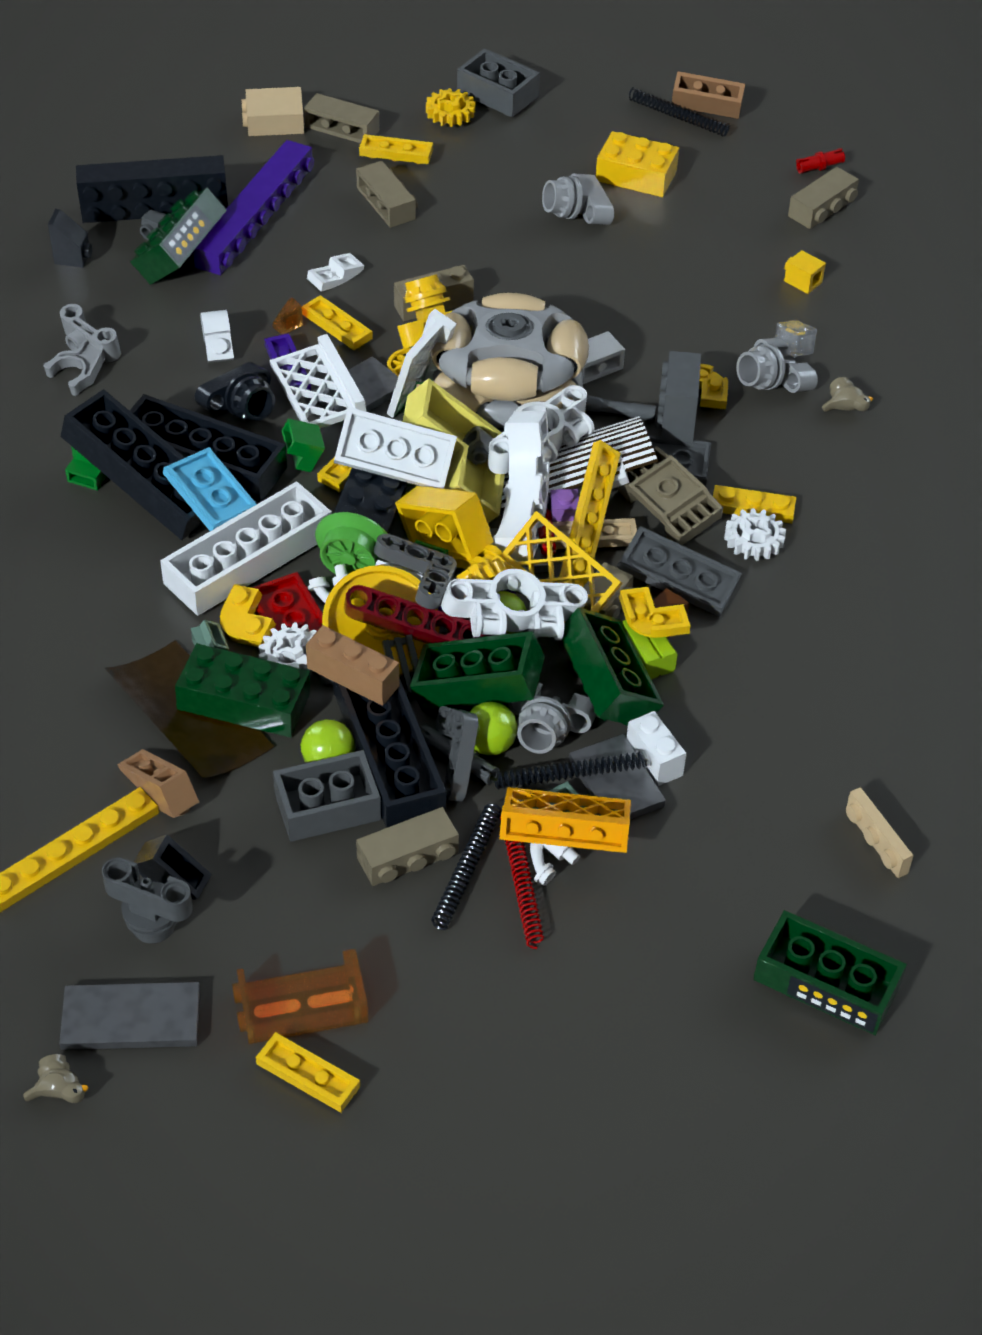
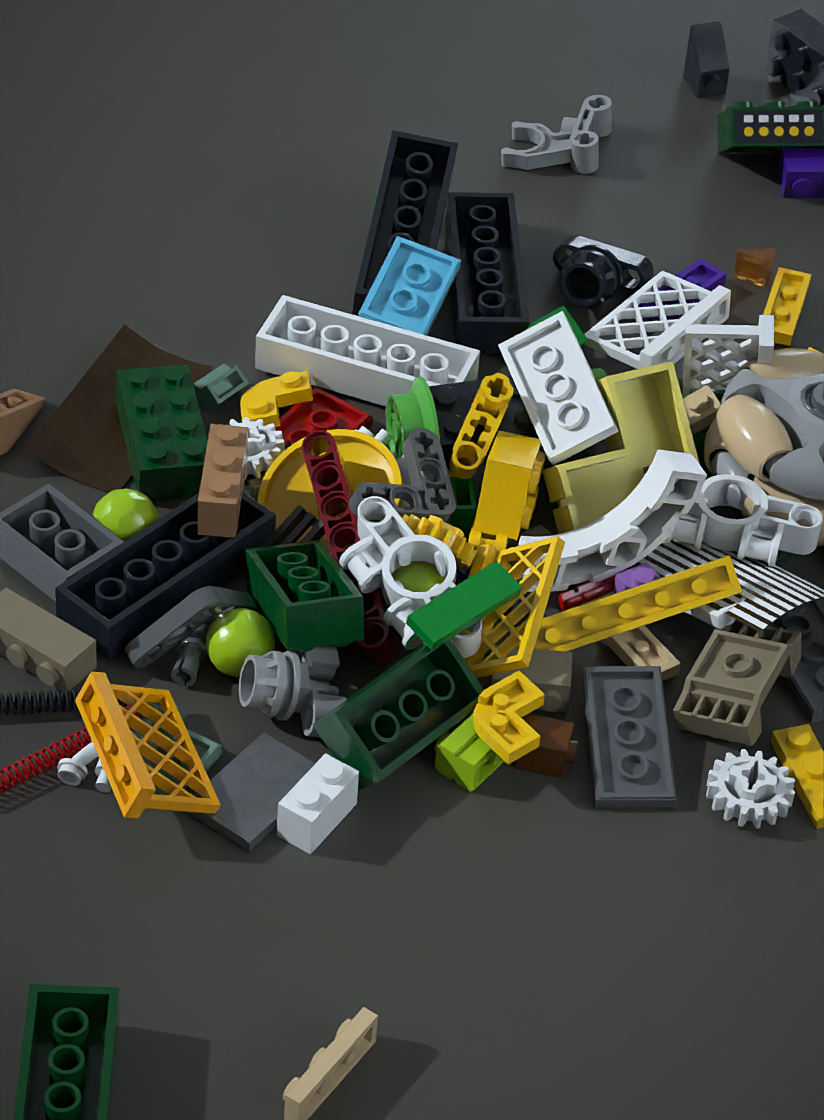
camera: 60 degrees right, 5 degrees down
(217, 336) = (672, 214): white brick -> none
(391, 506) = (484, 411): none -> yellow beam
(554, 773) = (195, 686): black piece -> none
(568, 585) = (463, 605): none -> green tile

